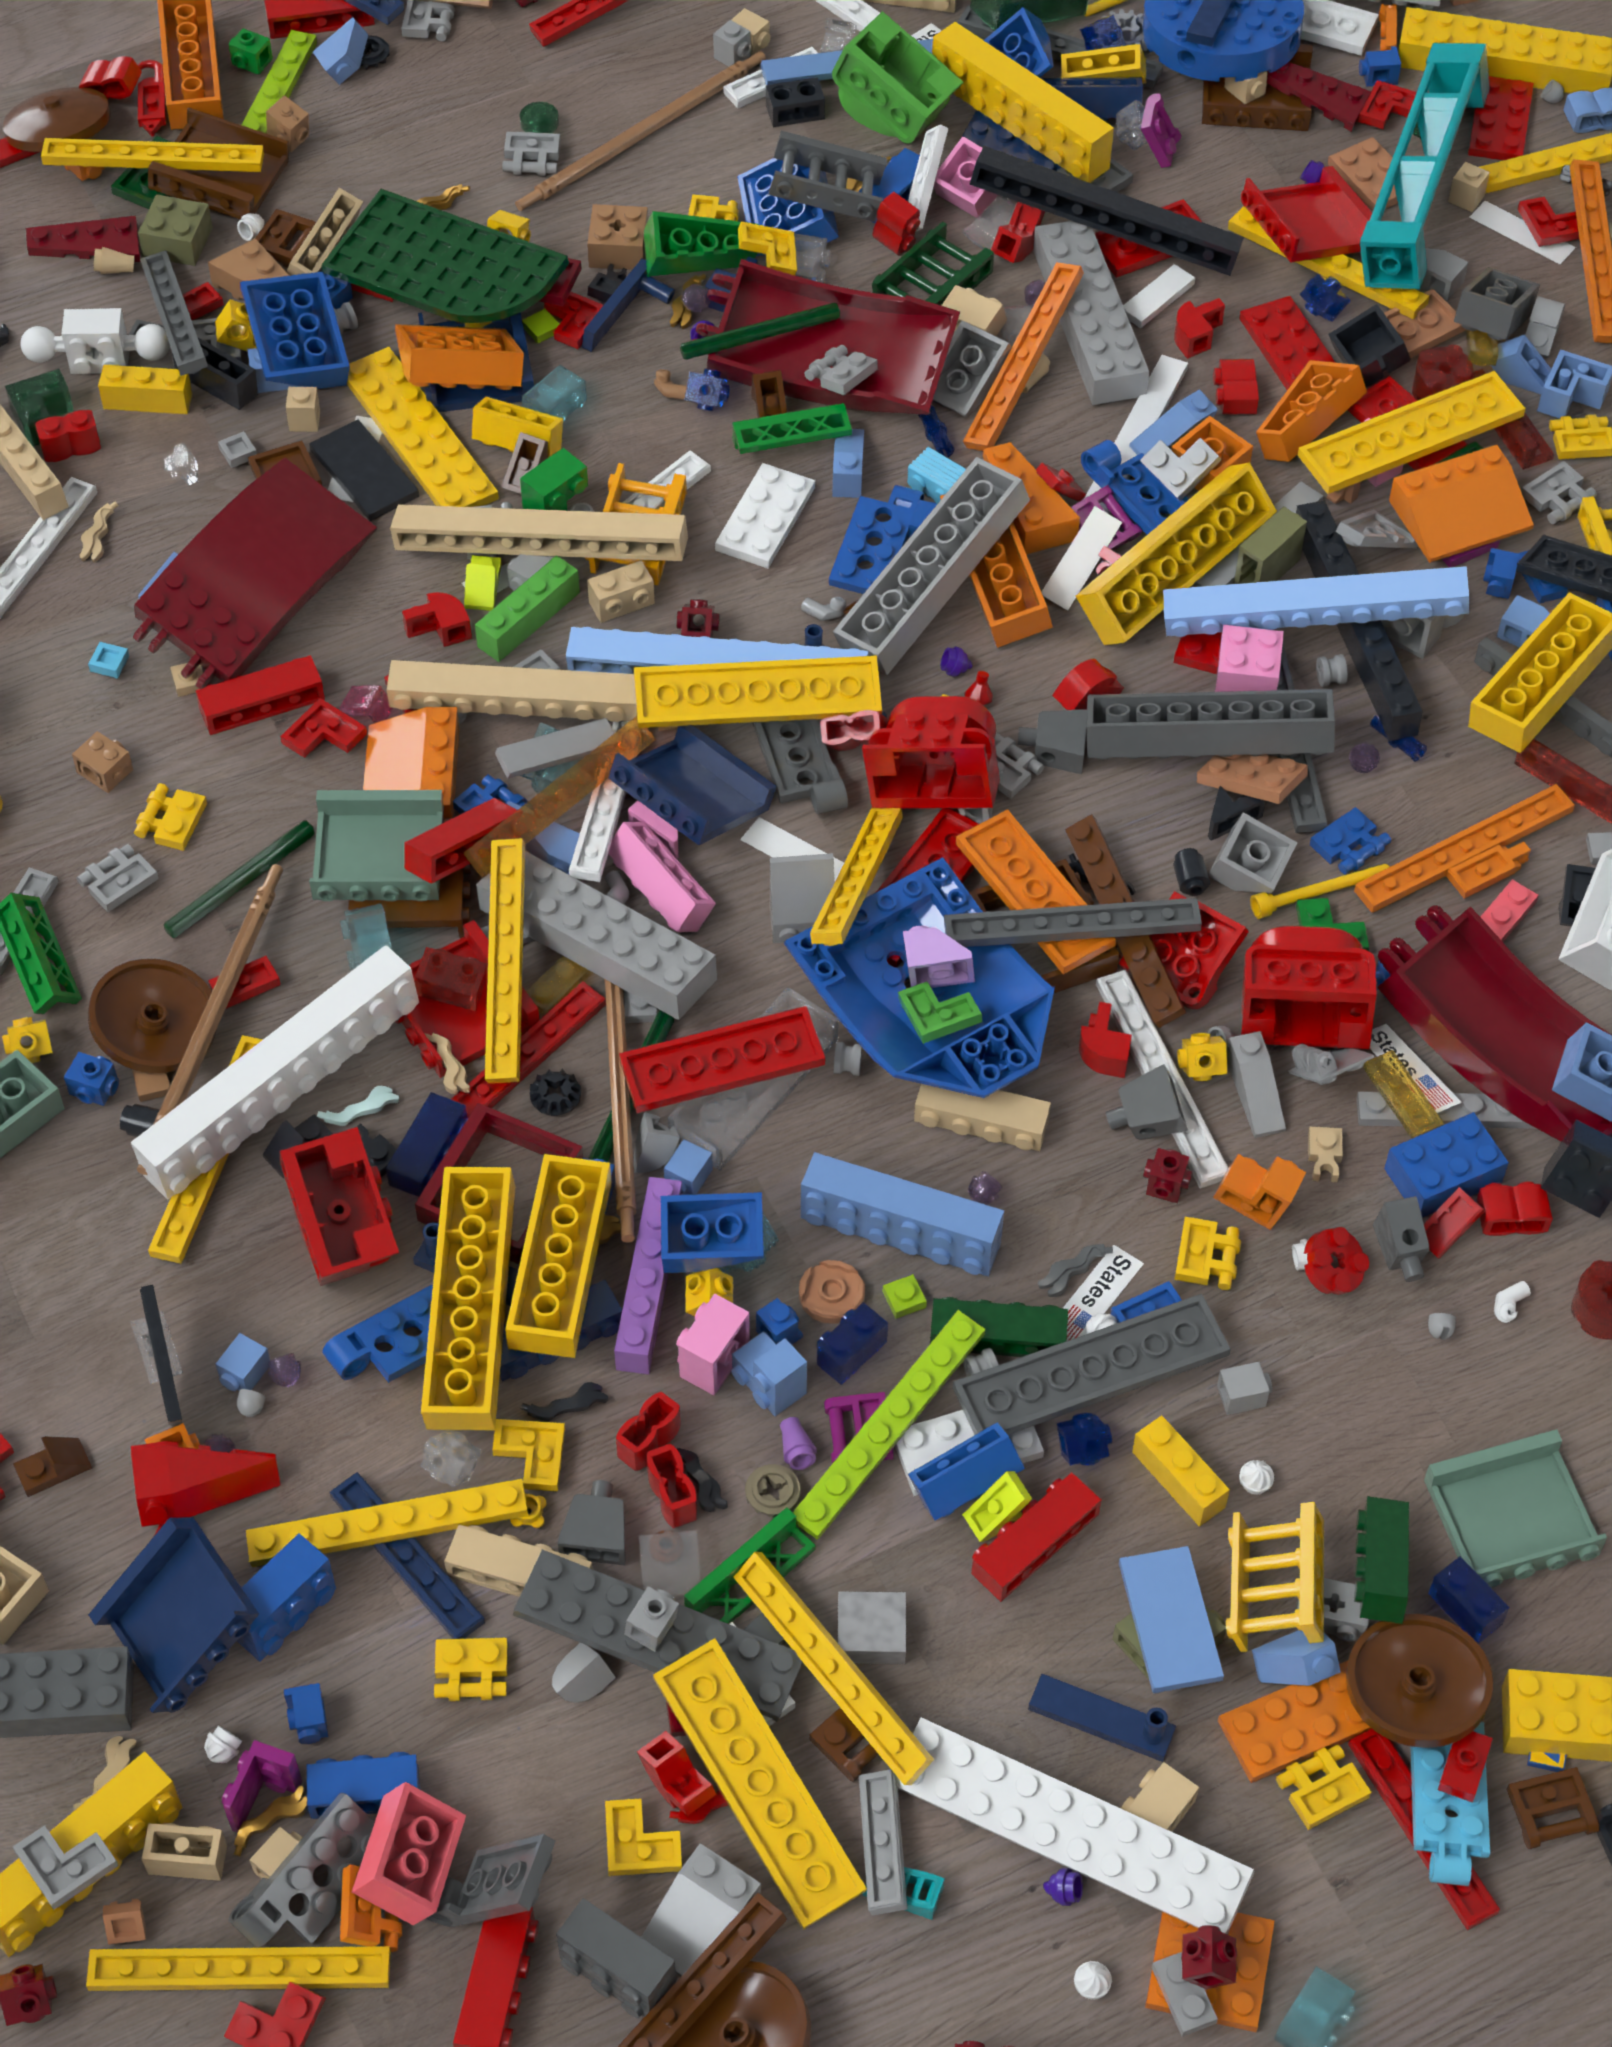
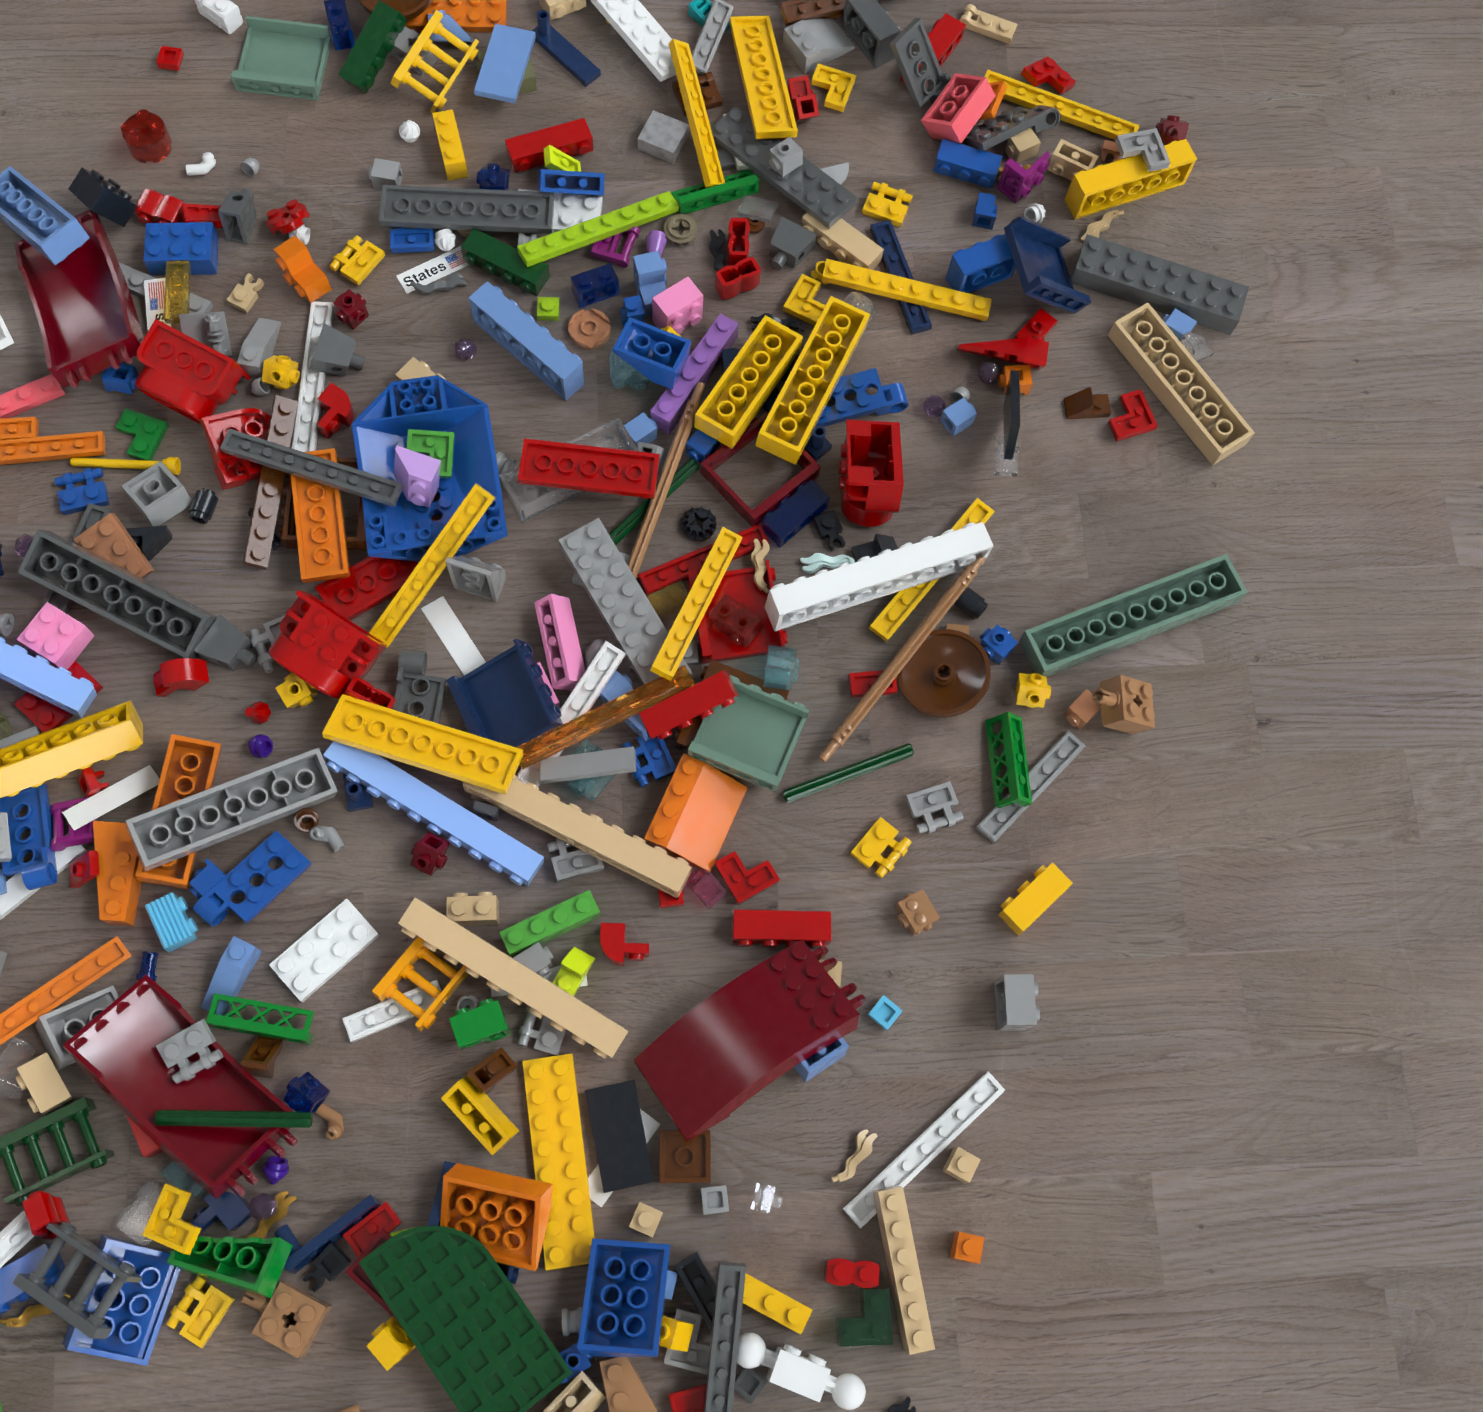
camera: 165 degrees left, 15 degrees up
(557, 393) = (433, 1143): clear light blue brick -> none

